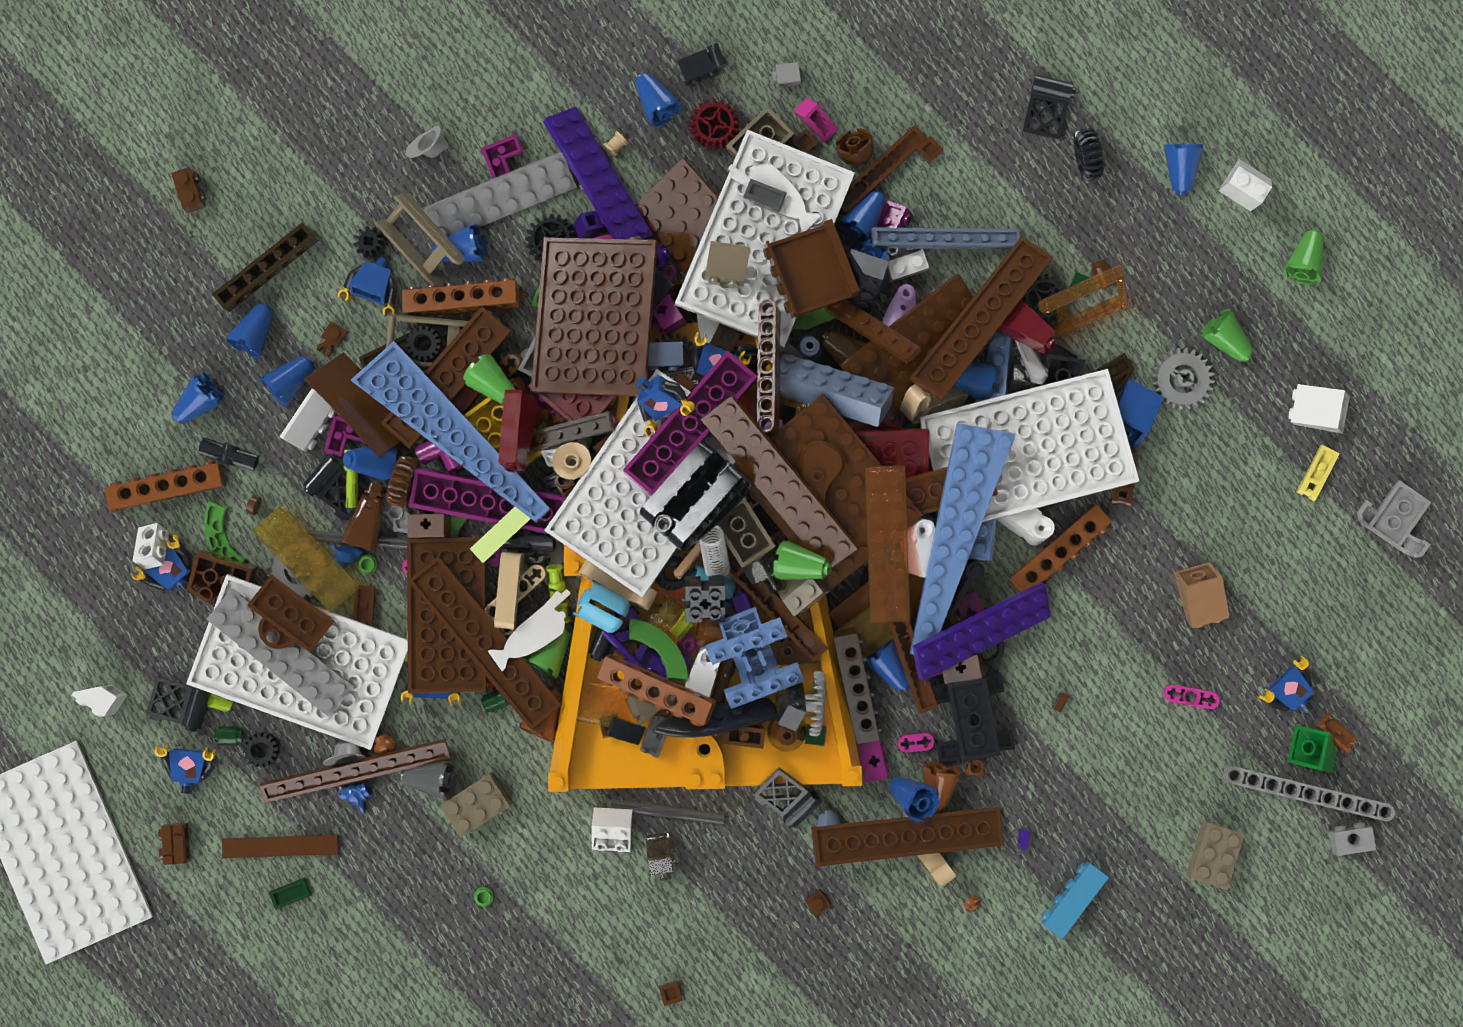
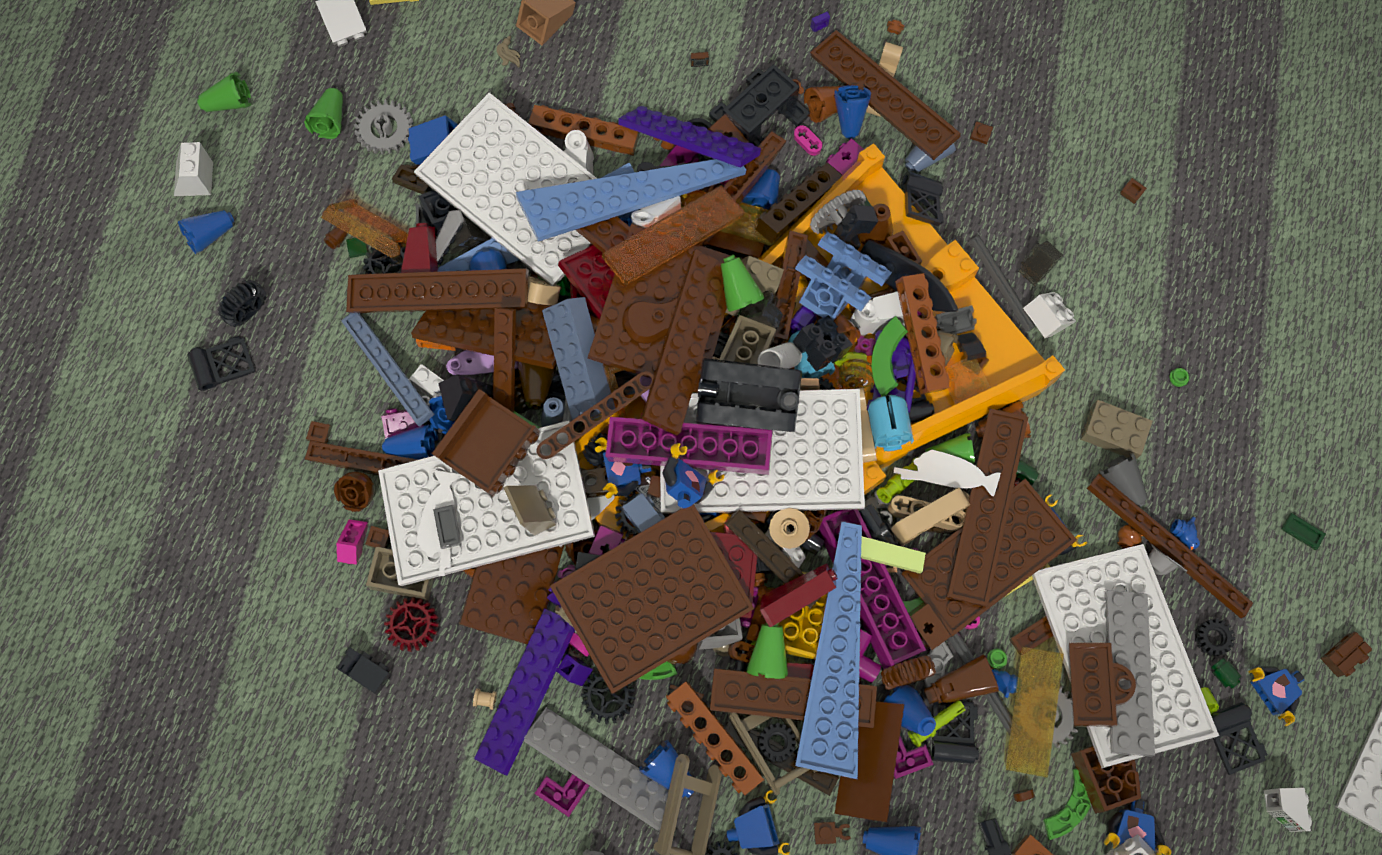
camera: 130 degrees left, 15 degrees down
(280, 846) = (1275, 567): reddish brown tile -> none
(308, 422) = (920, 795): white slope -> none
(656, 100) = (421, 689): blue cone -> none
(786, 74) = (327, 592): light grey brick -> none
(1184, 534) = (507, 54): none -> dark tan piece

